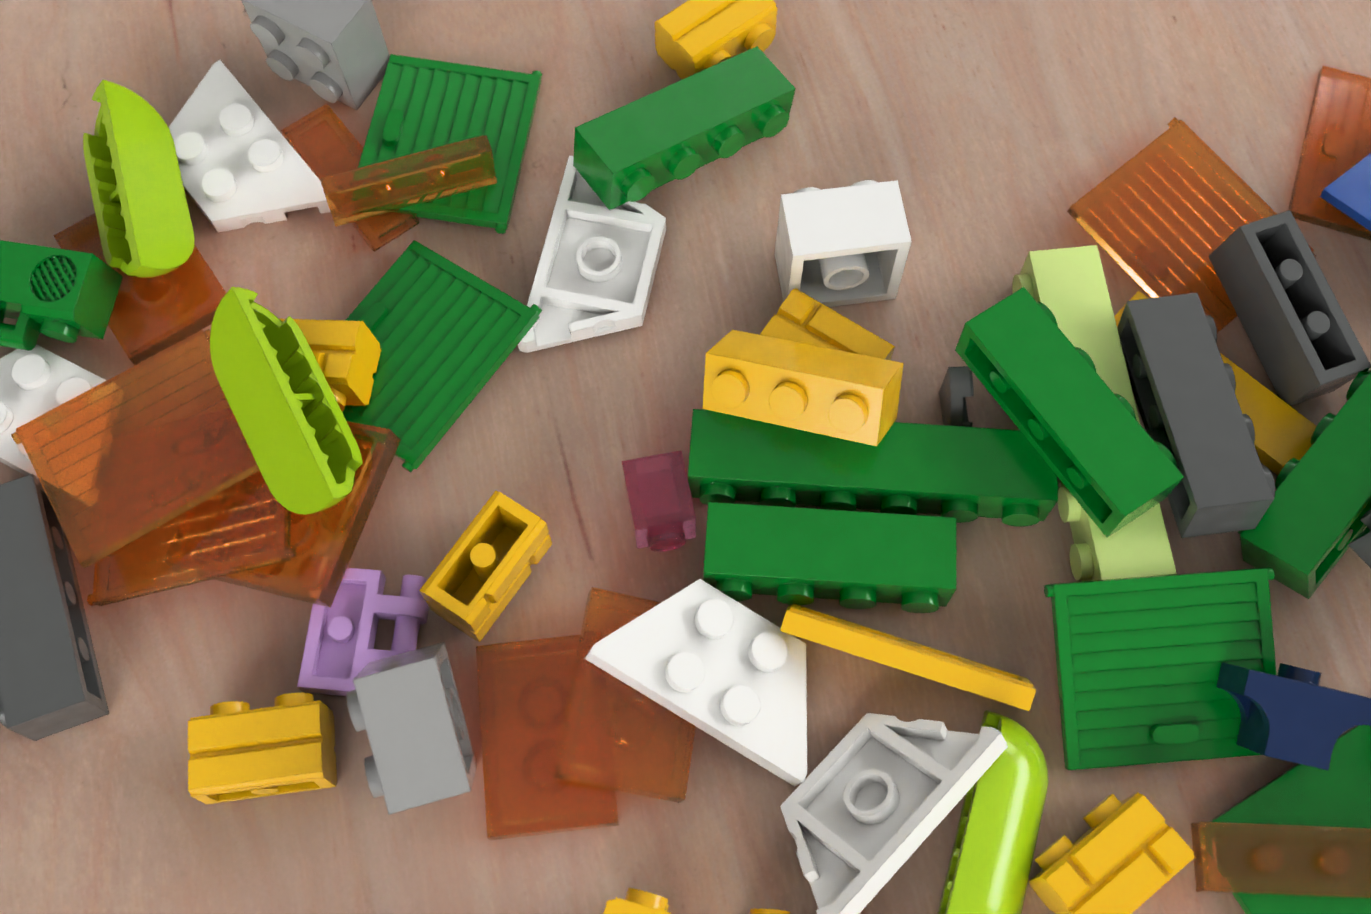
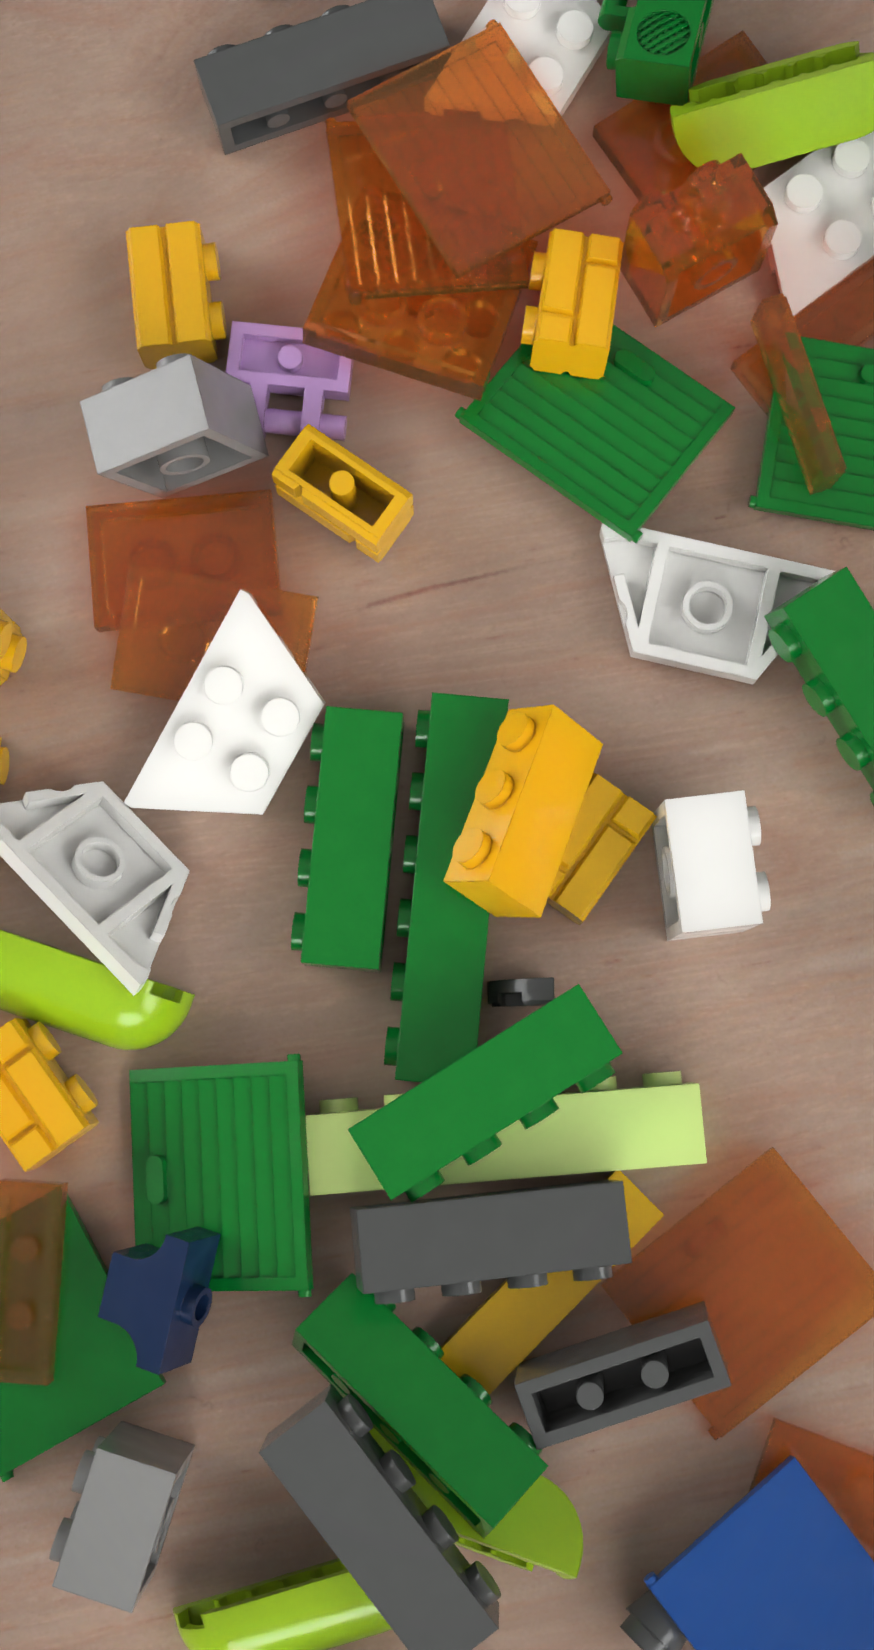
camera: 95 degrees right, 15 degrees up
(254, 249) = (697, 238): none -> clear orange hinge
(282, 405) = (503, 276): lime brick -> none
(659, 501) = (414, 667): clear pink brick -> none
(909, 656) = (242, 913): yellow tile -> none

